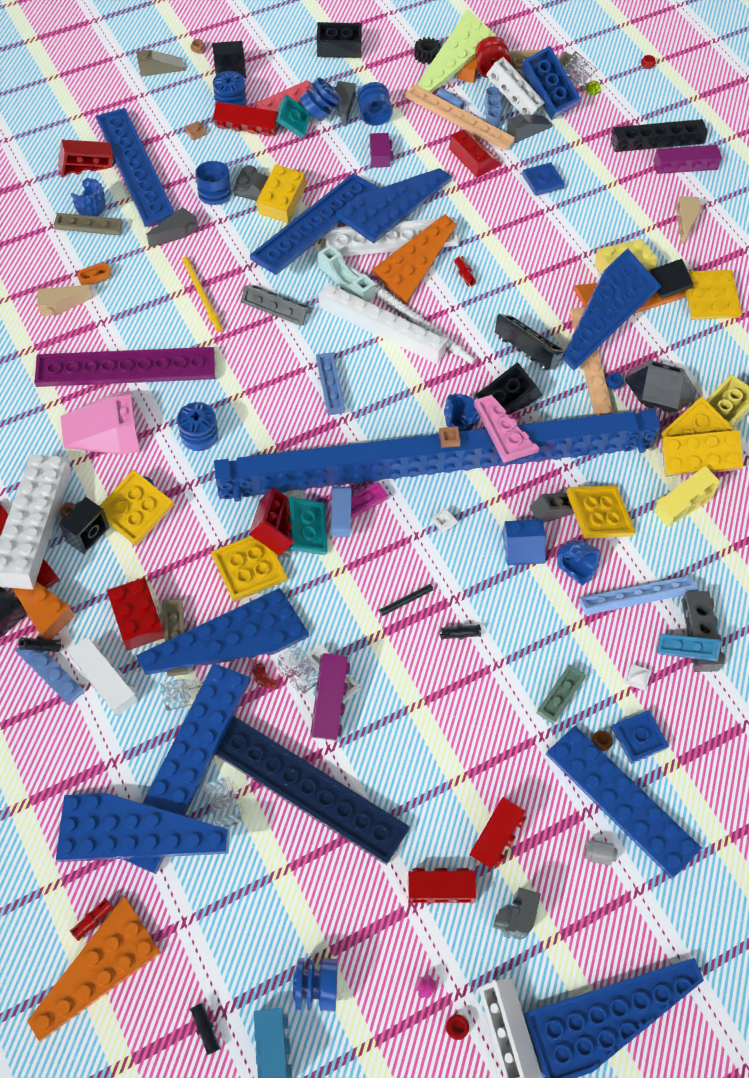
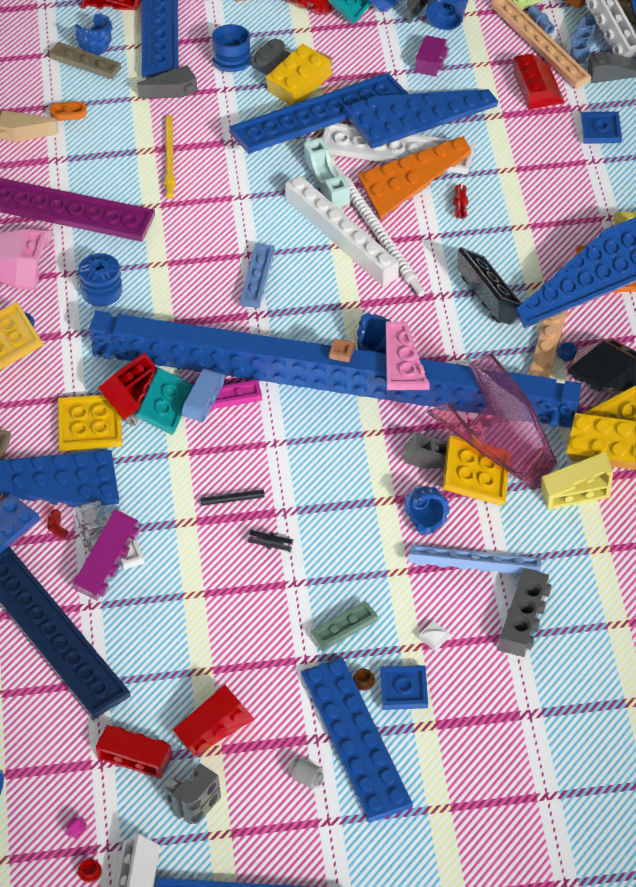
camera: 25 degrees right, 10 degrees down
(275, 304) = (239, 184): fence -> none
(444, 520) = (308, 435): white tile -> none
(512, 389) = (444, 332): black slope -> none
(524, 542) = (381, 477): slope -> none
(608, 464) = (506, 427): none -> clear pink windscreen
(689, 647) = (497, 619): dark azure tile -> none

